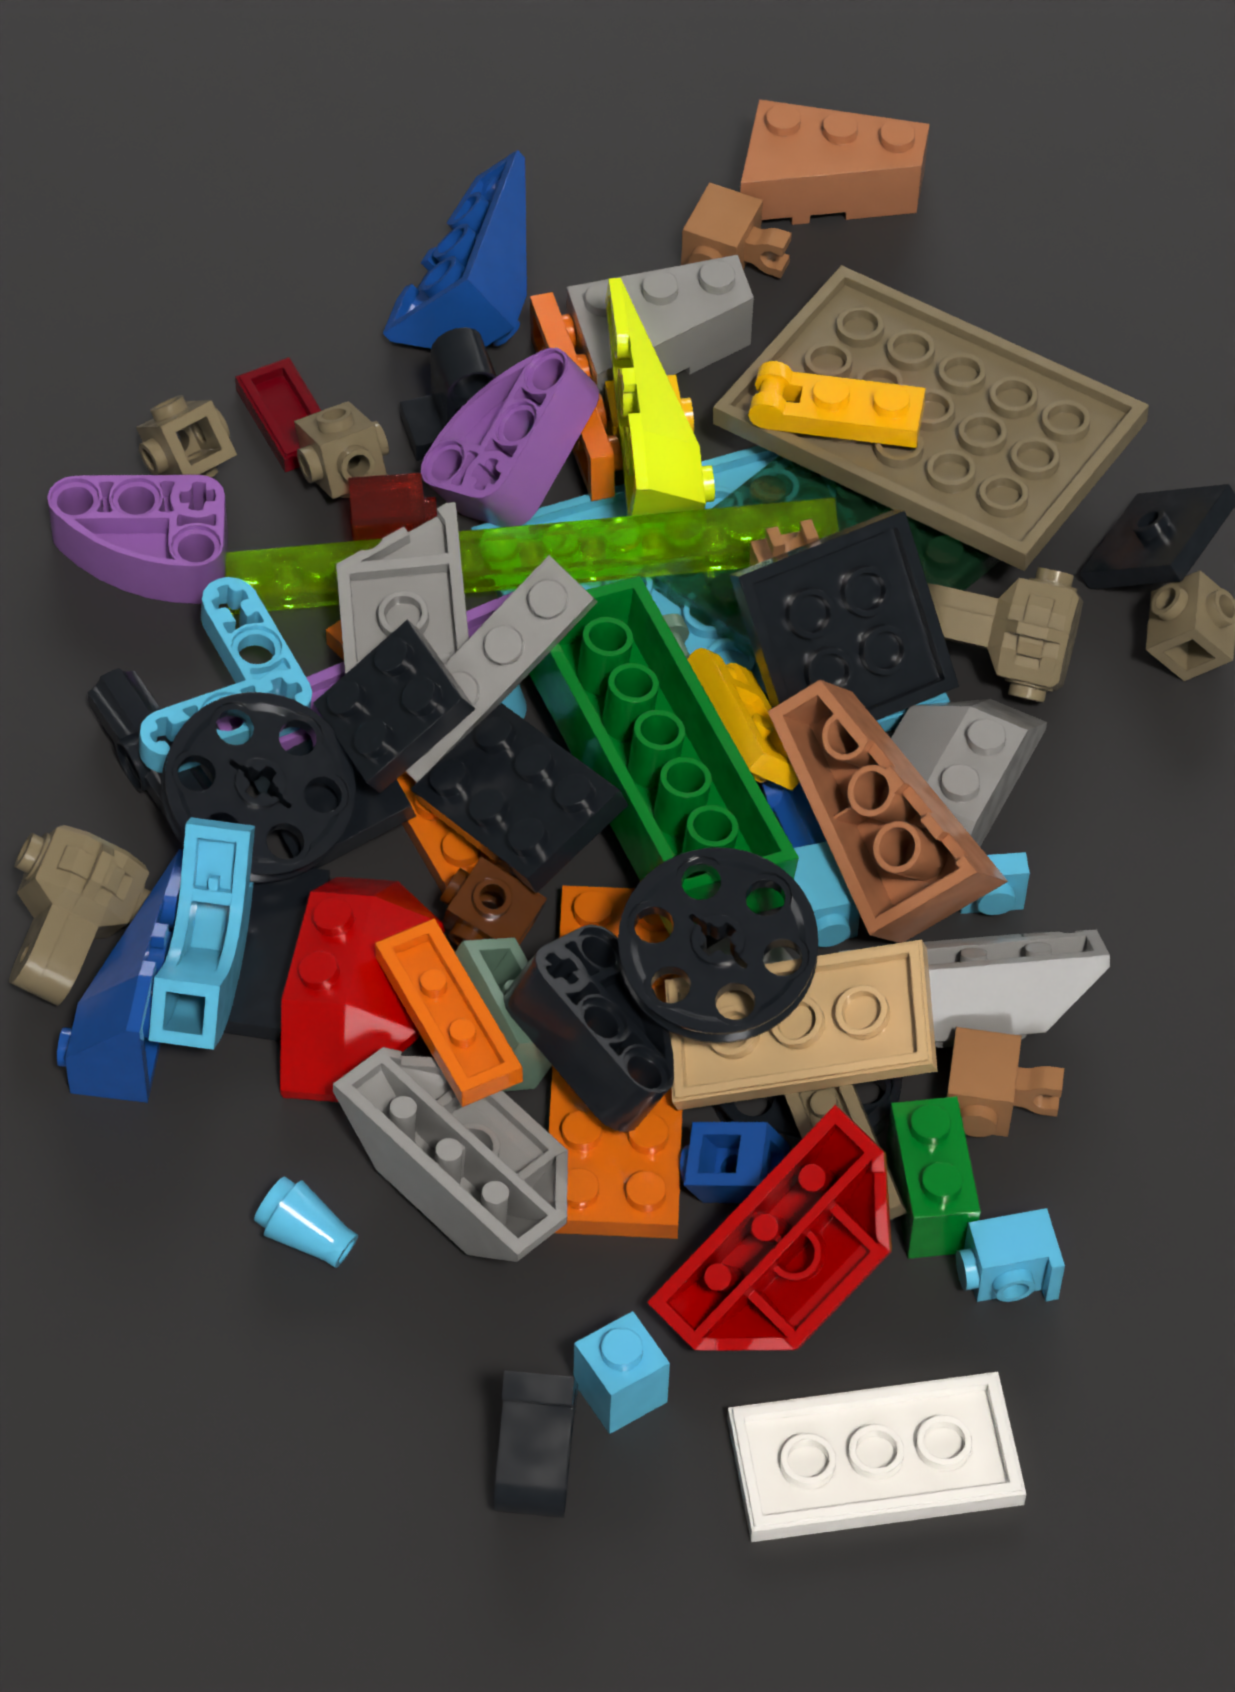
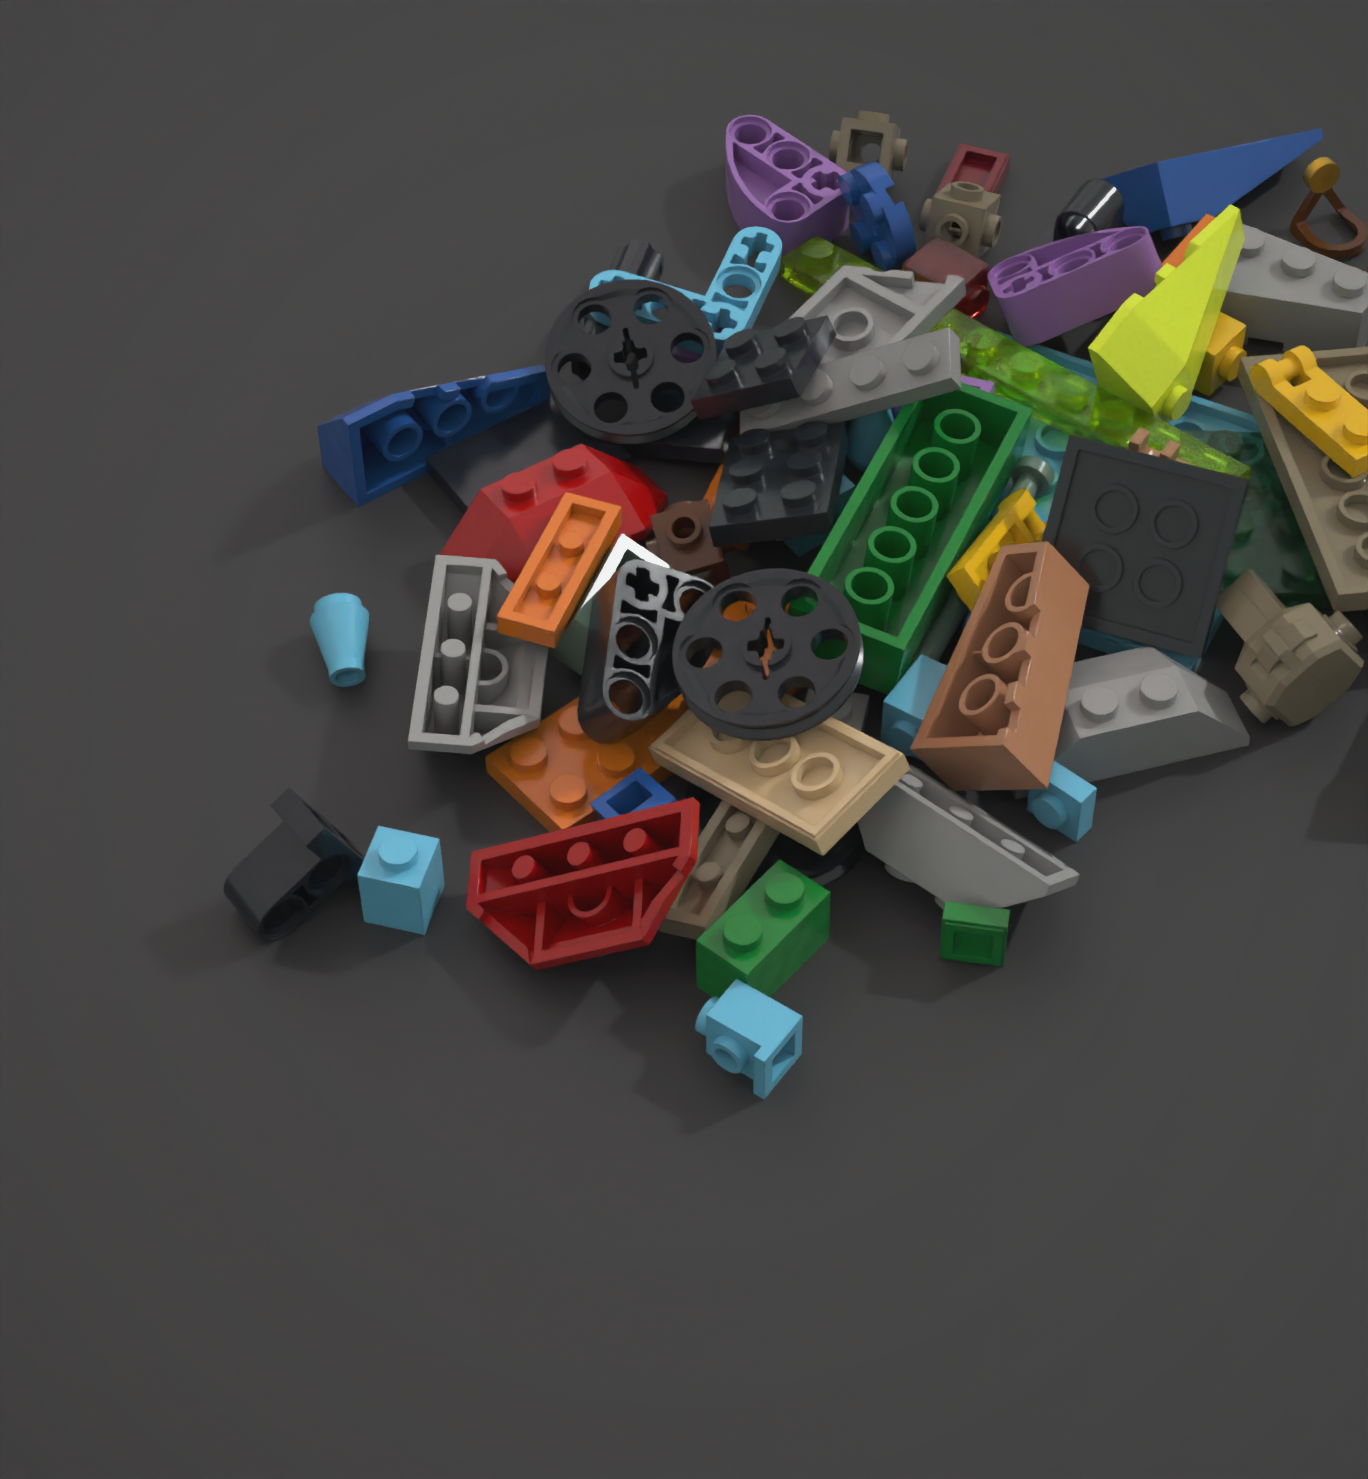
camera: 50 degrees right, 5 degrees down
(76, 893) = (450, 345): dark tan piece -> none
(209, 936) = (487, 432): medium azure arch -> none
(280, 499) = (879, 222): none -> blue plate
(575, 204) = (1320, 178): none -> reddish brown piece
(875, 1456) = (505, 1083): white tile -> none
(990, 1082) = (887, 916): medium nougat brick -> none
(1063, 1038) = (974, 933): none -> green tile

